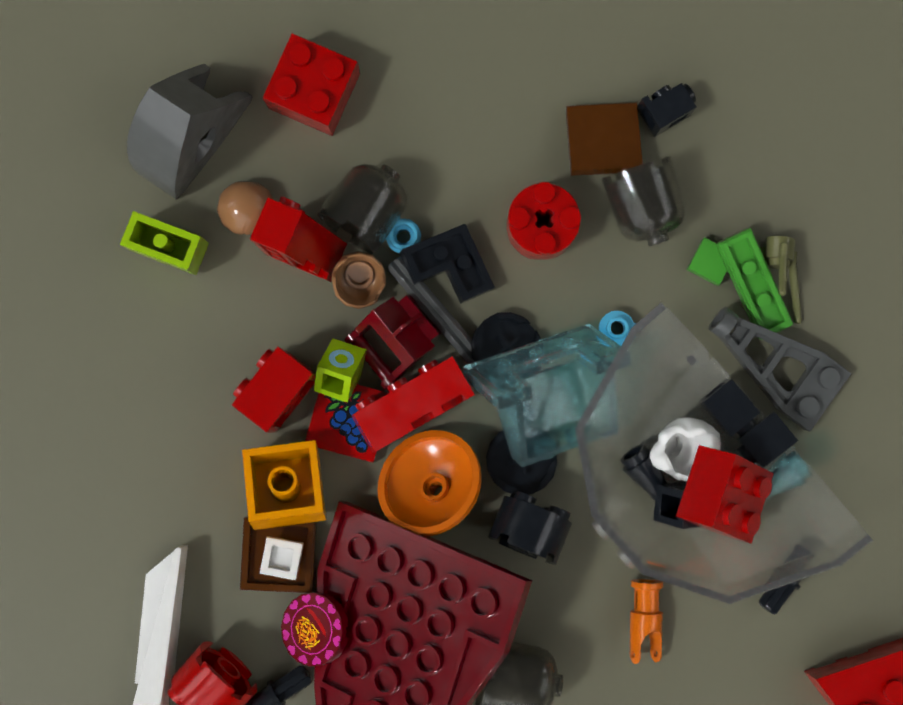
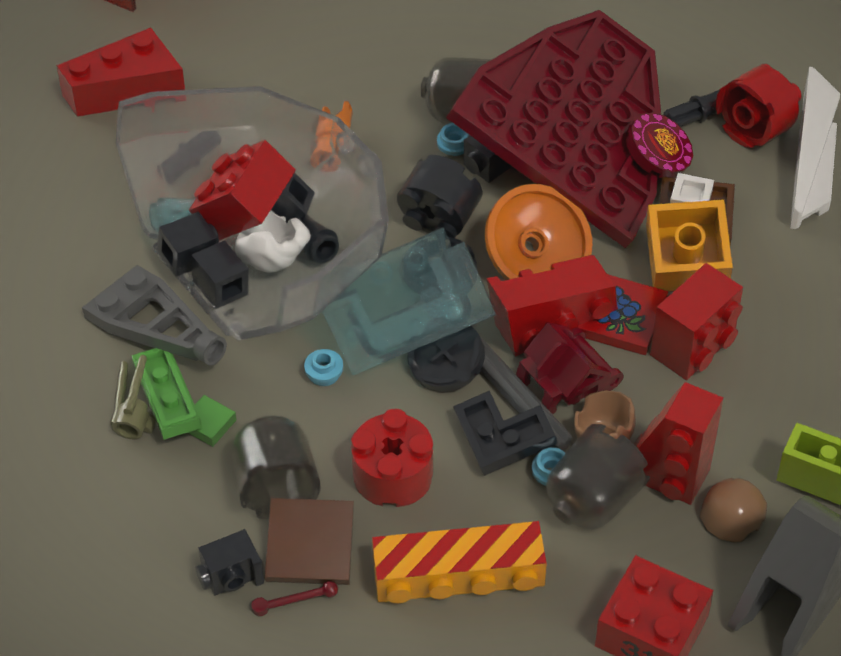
camera: 175 degrees left, 35 degrees down
(339, 370) = (627, 340): lime brick -> none
(477, 126) = (459, 562): none -> light orange brick
(533, 629) = (451, 140): none -> medium azure plate
(635, 83) = (261, 606): none -> dark red hinge

